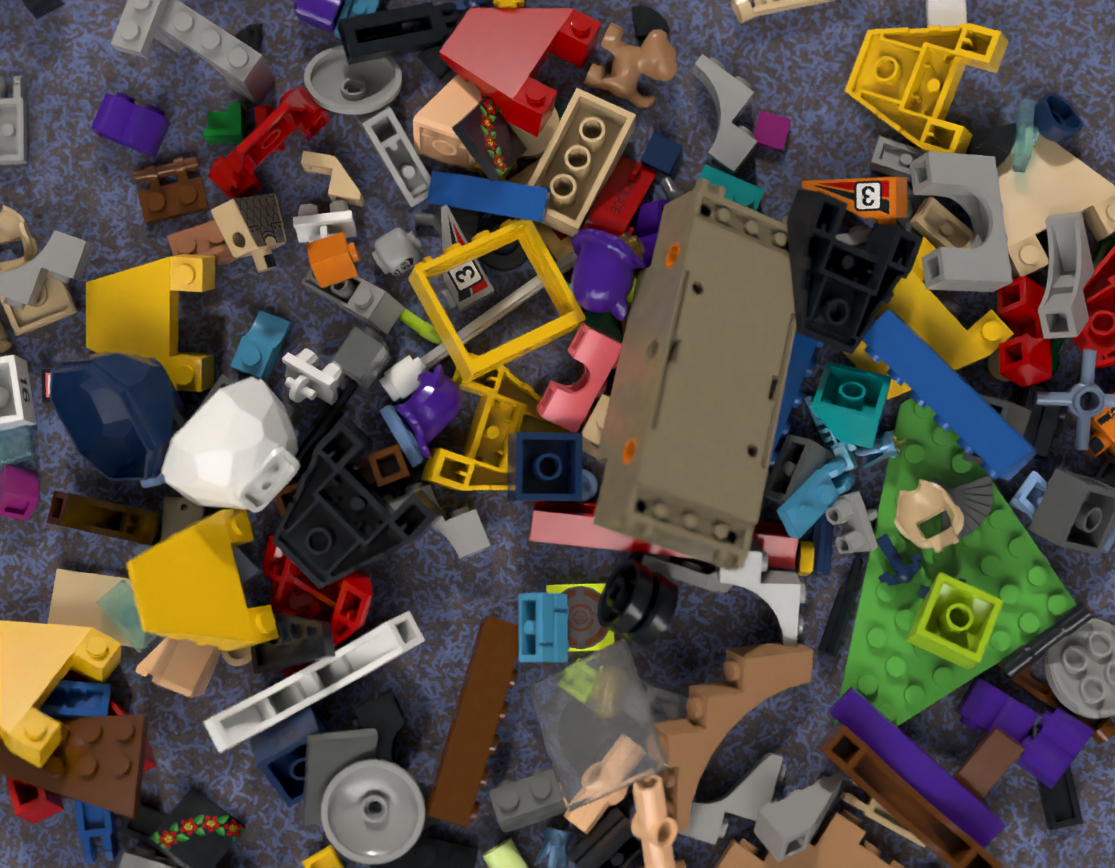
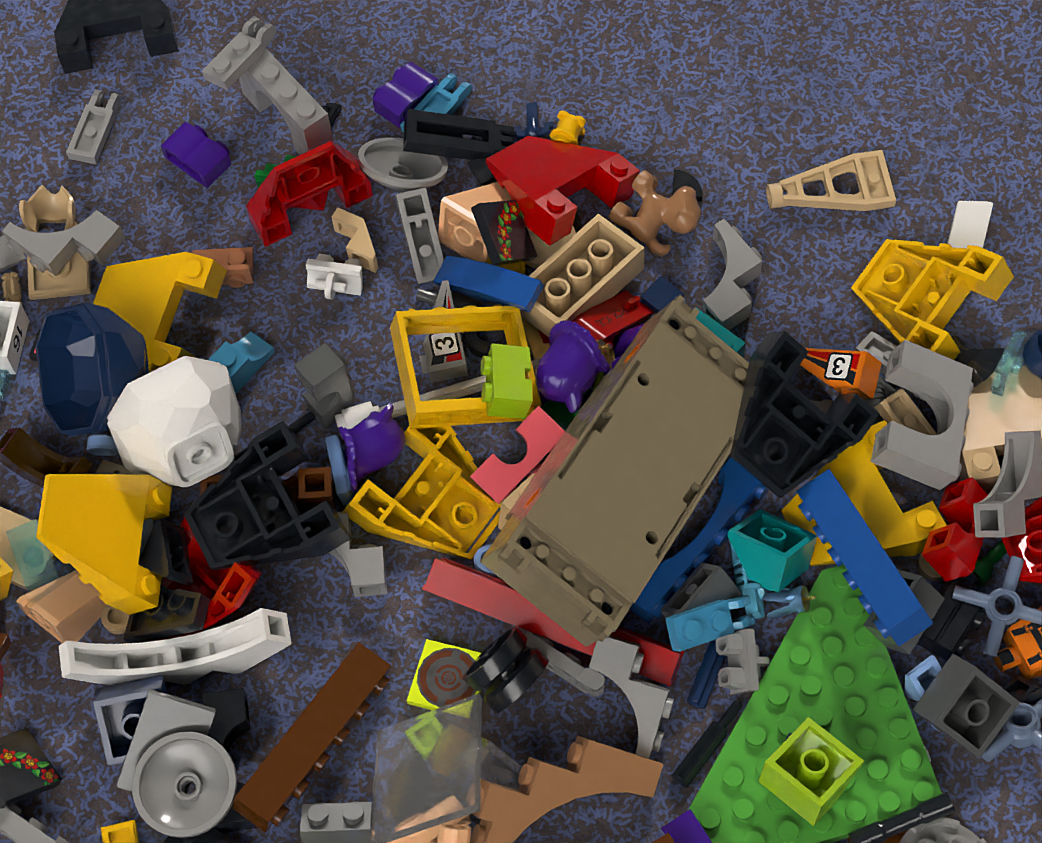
camera: 20 degrees right, 20 degrees down
(173, 199) = (211, 223): reddish brown plate -> none
(252, 228) = (268, 257): torso -> none
(269, 583) = (167, 553): none -> black slope
(308, 381) = (272, 396): white hips -> none
(333, 259) = (330, 300): orange brick -> none
(361, 300) = (340, 335): light grey slope -> none
(397, 251) = (384, 309): light grey head -> none
(424, 328) = (392, 386): lime piece -> none
(543, 627) = (408, 668): dark azure brick -> none
(544, 466) = (458, 523): dark blue brick -> none
(547, 310) = (505, 387): none -> lime brick
(771, 131) = (770, 303): magenta tile -> none
(805, 558) = (684, 685): yellow tile -> none
(903, 573) = (775, 719): dark blue piece -> none
(922, 504) = (811, 661): tan helmet -> none
(973, 500) = (854, 673): dark grey hand -> none

